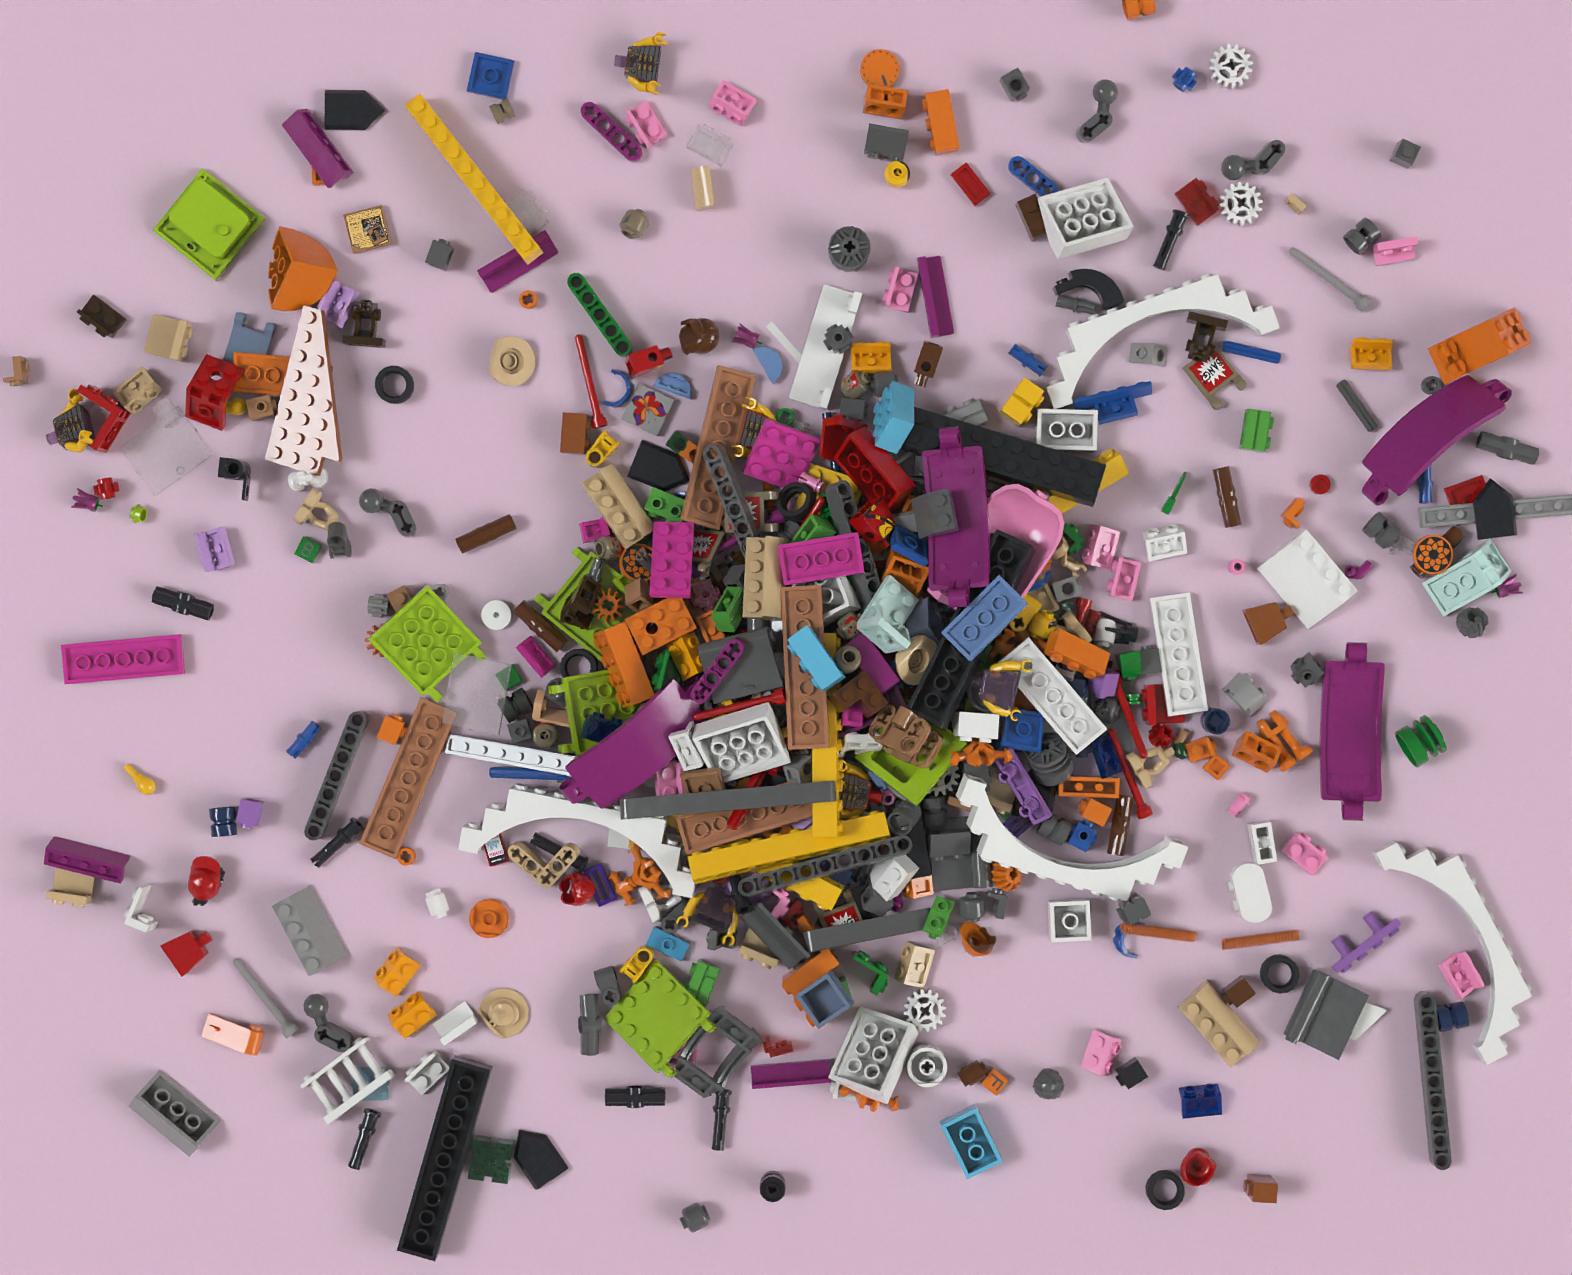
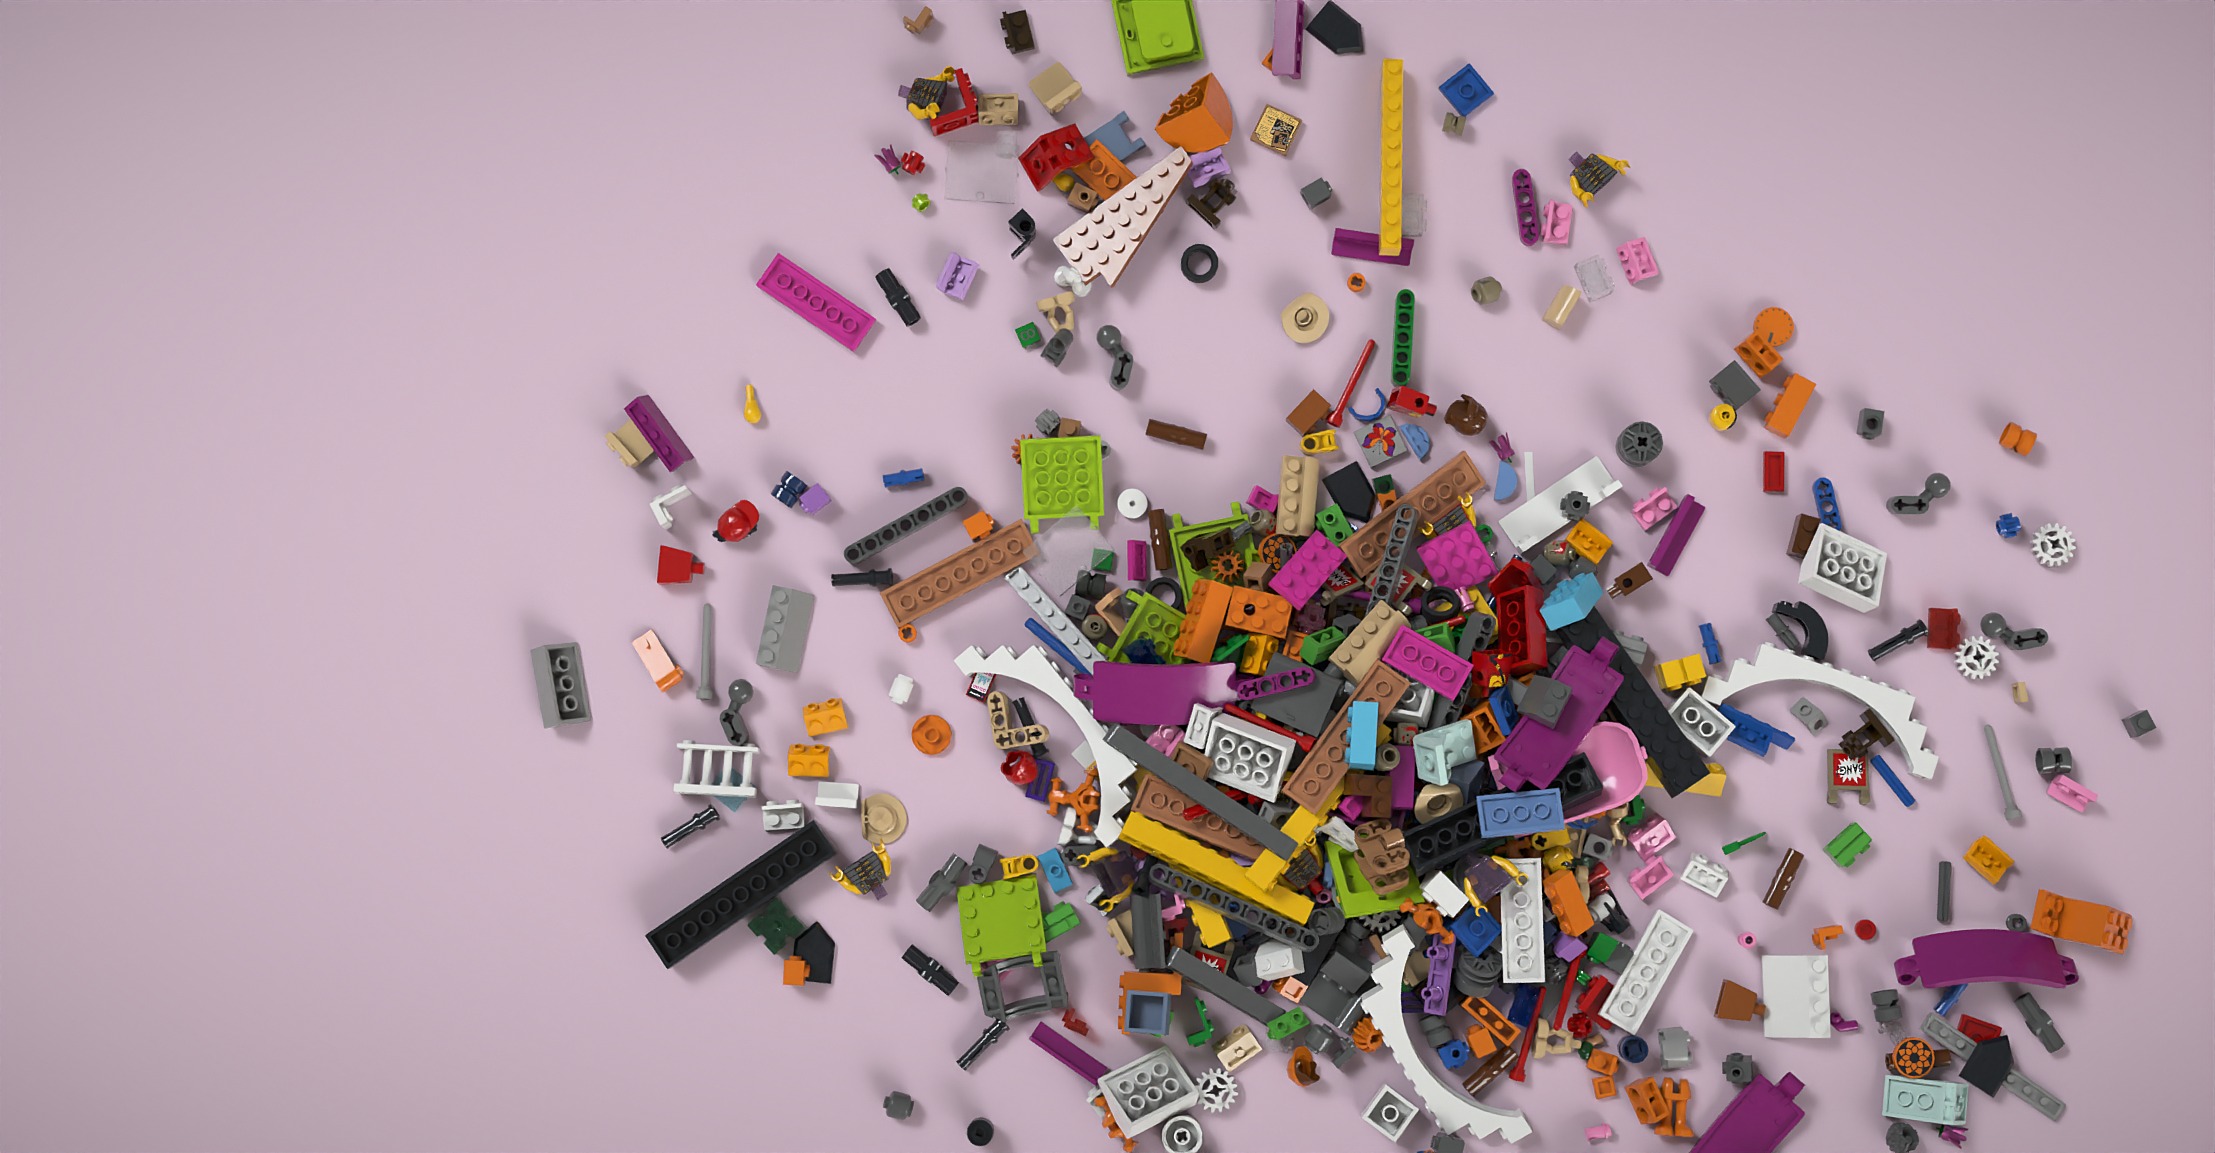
camera: 45 degrees right, 5 degrees down
(526, 1064) = (867, 873): none -> torso
(533, 1182) = (795, 971): none -> orange brick

